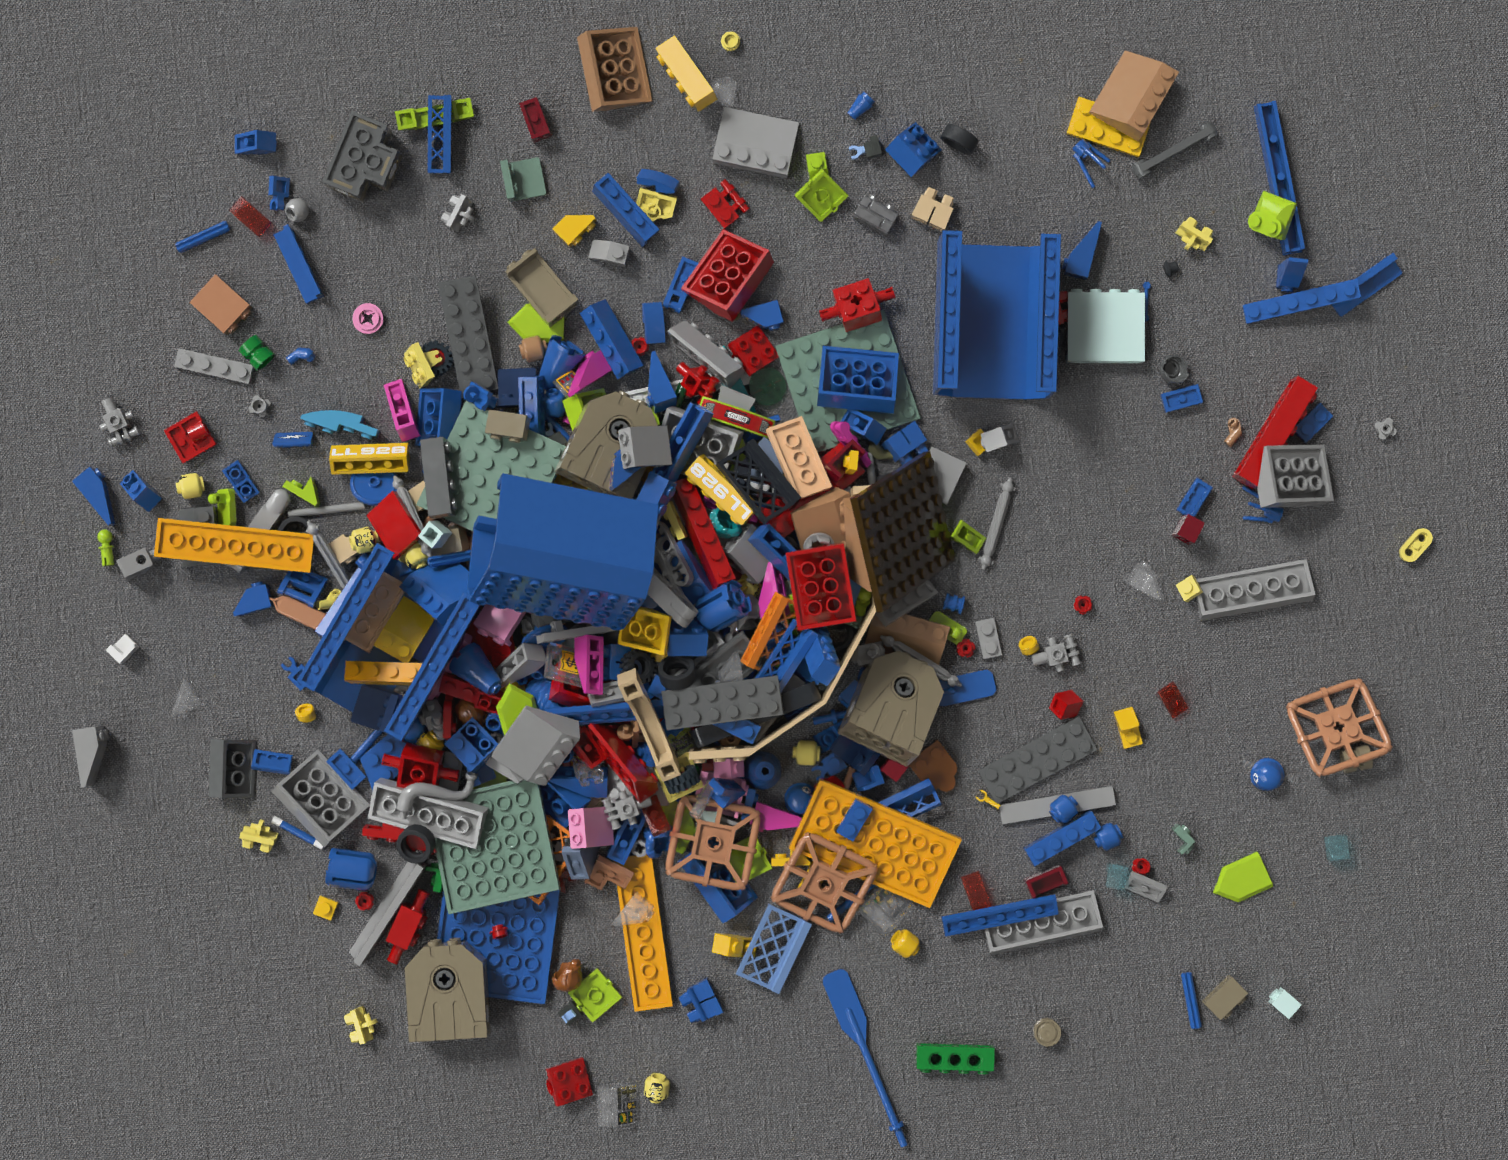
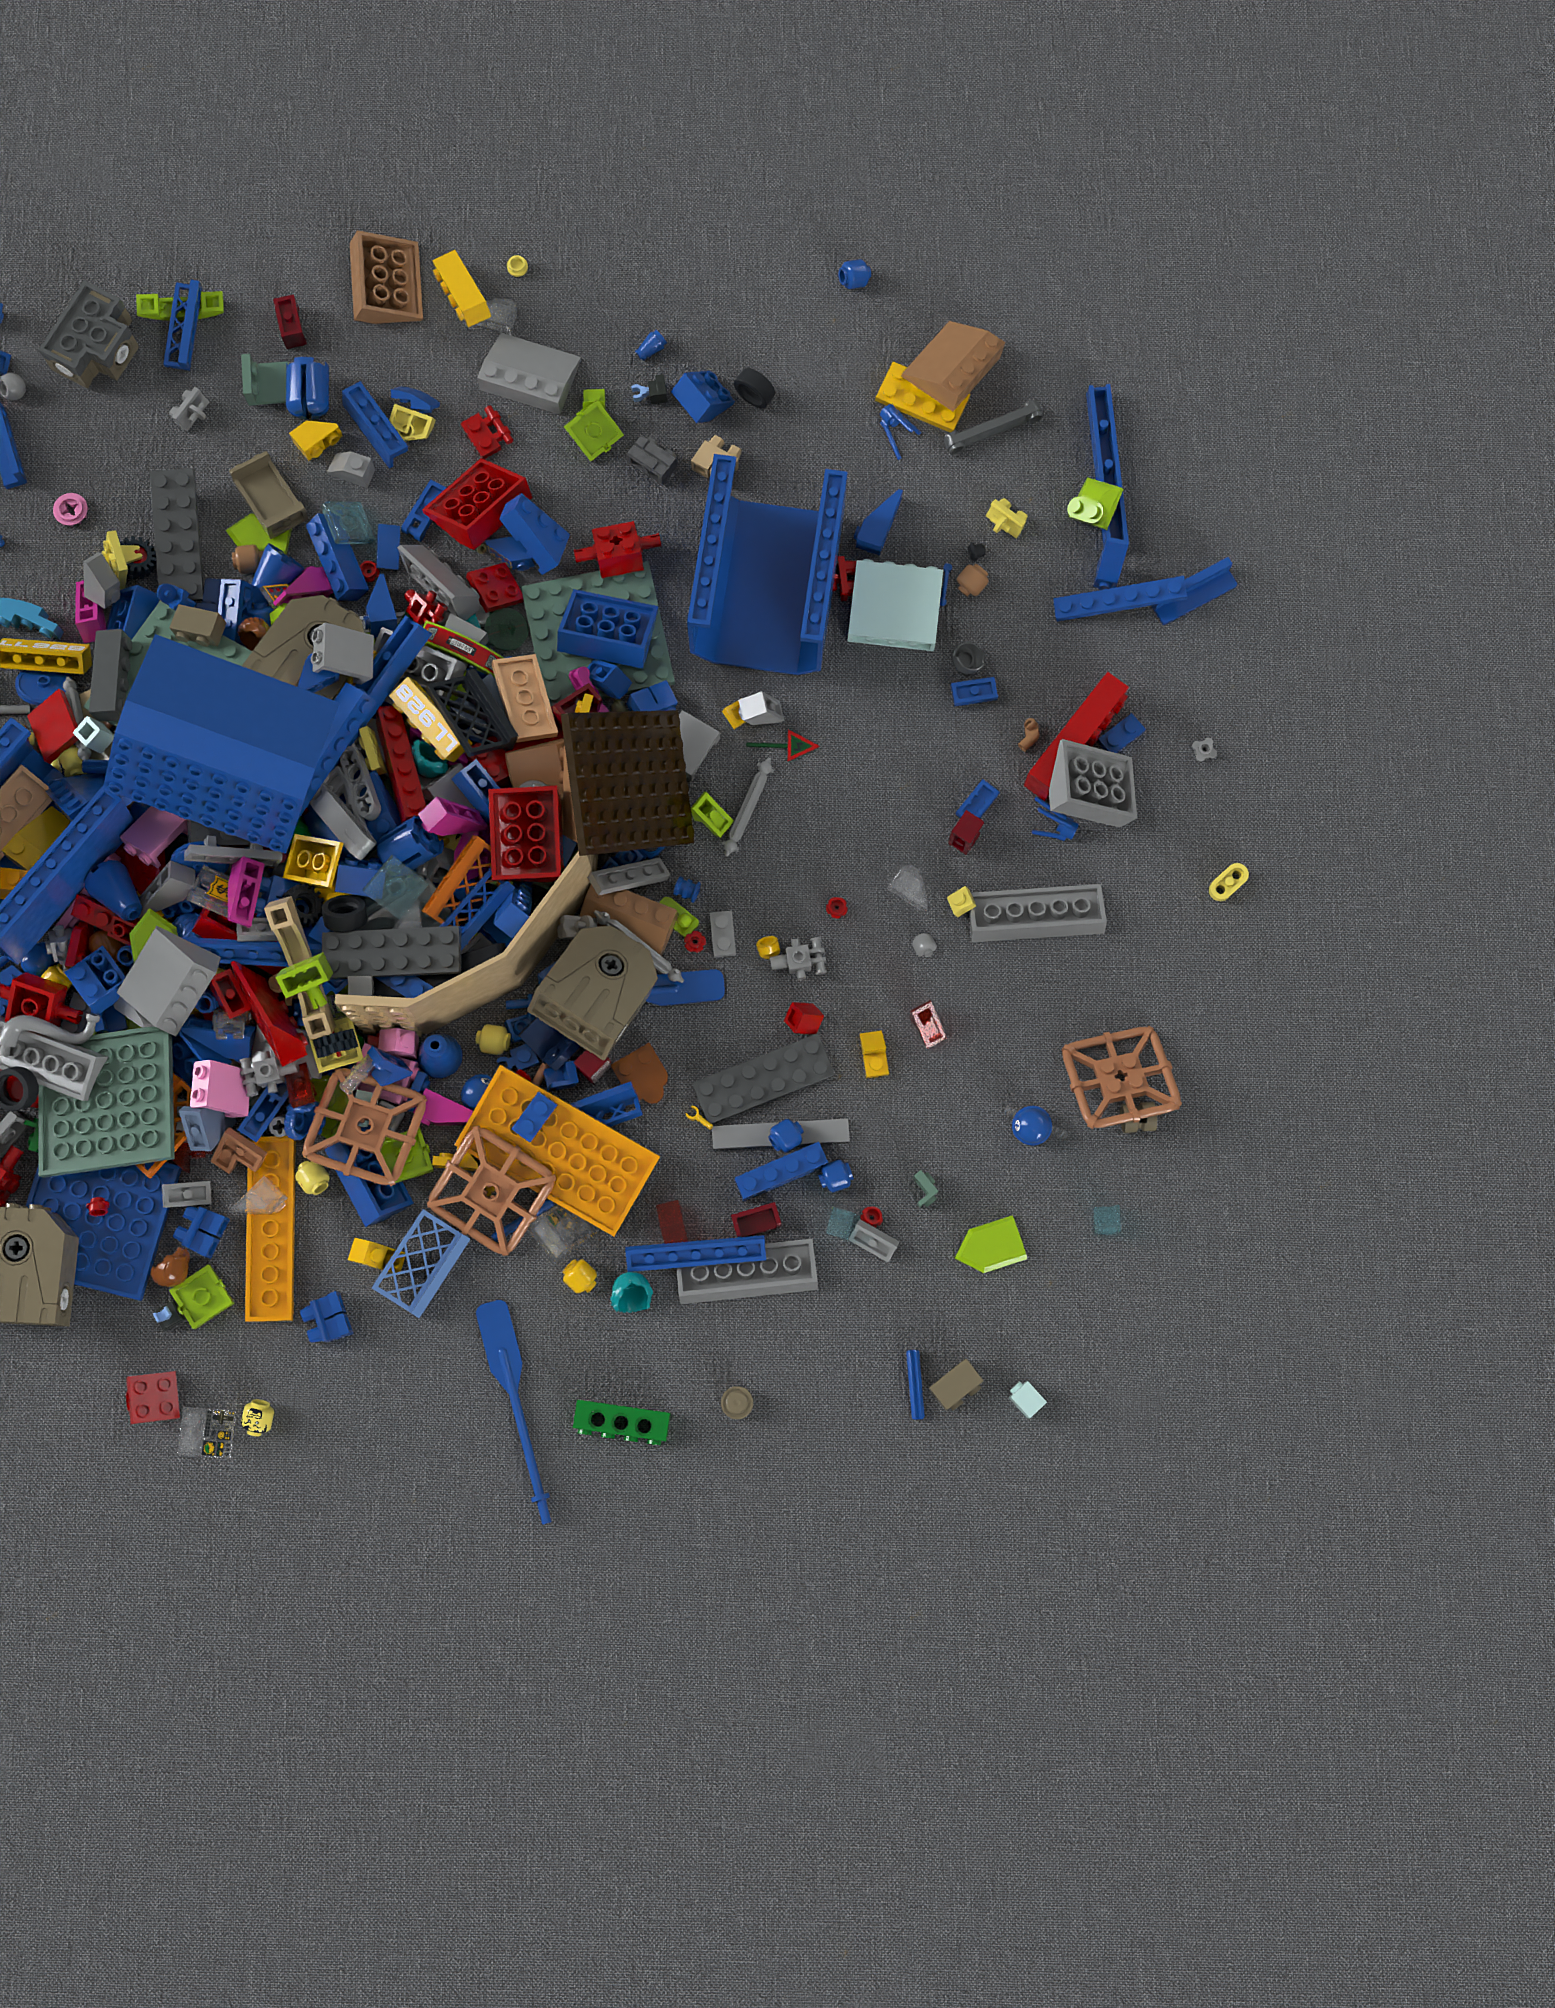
camera: 10 degrees right, 10 degrees down
(411, 389) = (100, 581): none -> light grey slope
(552, 186) = (307, 388): none -> blue cylinder
(556, 424) = (252, 631): none -> dark orange hair
(569, 912) = (186, 1194): none -> light grey plate
(582, 948) = (194, 1237): none -> blue hips
(616, 306) = (347, 522): none -> clear light blue plate
(657, 734) = (306, 977): none -> lime brick
(671, 887) = (312, 1177): none -> light yellow head
(701, 737) = (361, 985): none -> light grey brick
(718, 646) = (395, 886): none -> clear light blue plate
(755, 580) = (450, 818): none -> dark pink slope
(786, 300) = (536, 531): none -> blue wedge
(949, 952) = (631, 1293): none -> teal hair
(1031, 462) = (796, 745): none -> piece
(1035, 16) = (854, 274): none -> blue head
(1160, 628) = (924, 945): none -> light grey piece
(1170, 296) = (972, 580): none -> medium nougat head

